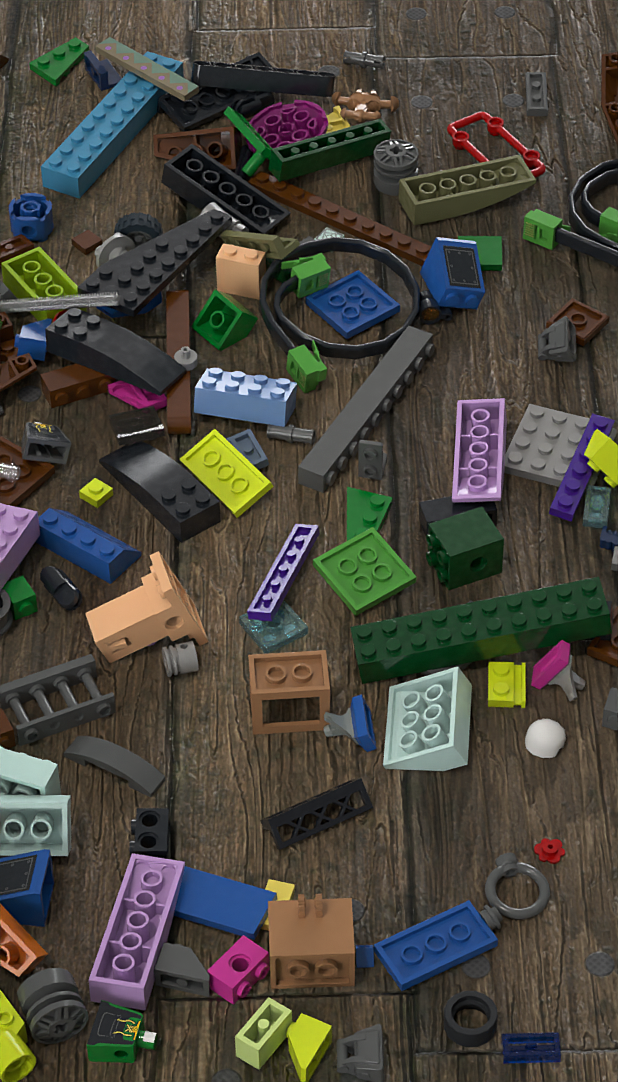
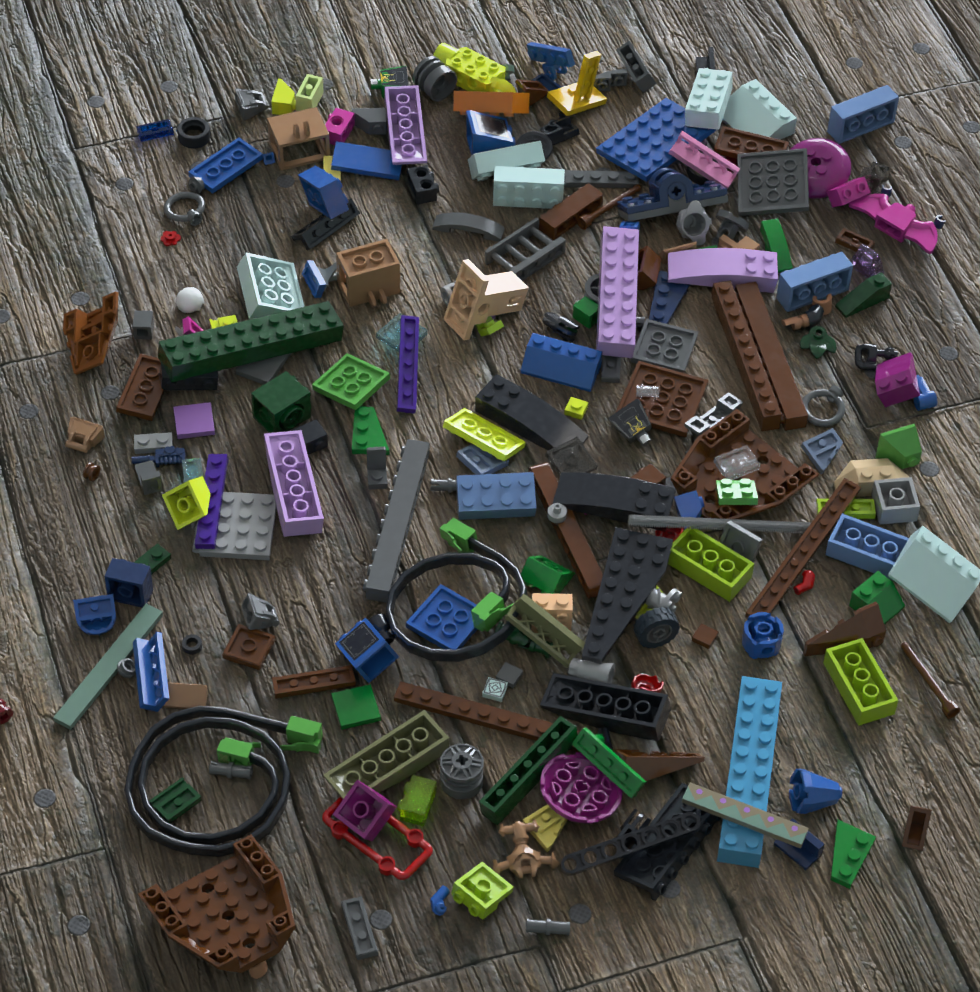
camera: 160 degrees right, 5 degrees up
(67, 92) = (812, 791): none -> blue cone
(174, 202) = (647, 682): none -> red hair
(309, 817) = (324, 192): none -> blue brick
(414, 87) = (481, 890): none -> lime plate
(447, 156) = (417, 800): none -> clear neon green brick
(456, 97) = (437, 903): none -> blue arm
(500, 143) = (364, 810): none -> magenta slope
(522, 278) = (313, 681): none -> reddish brown plate
(578, 568) = (194, 420): none -> medium lavender tile

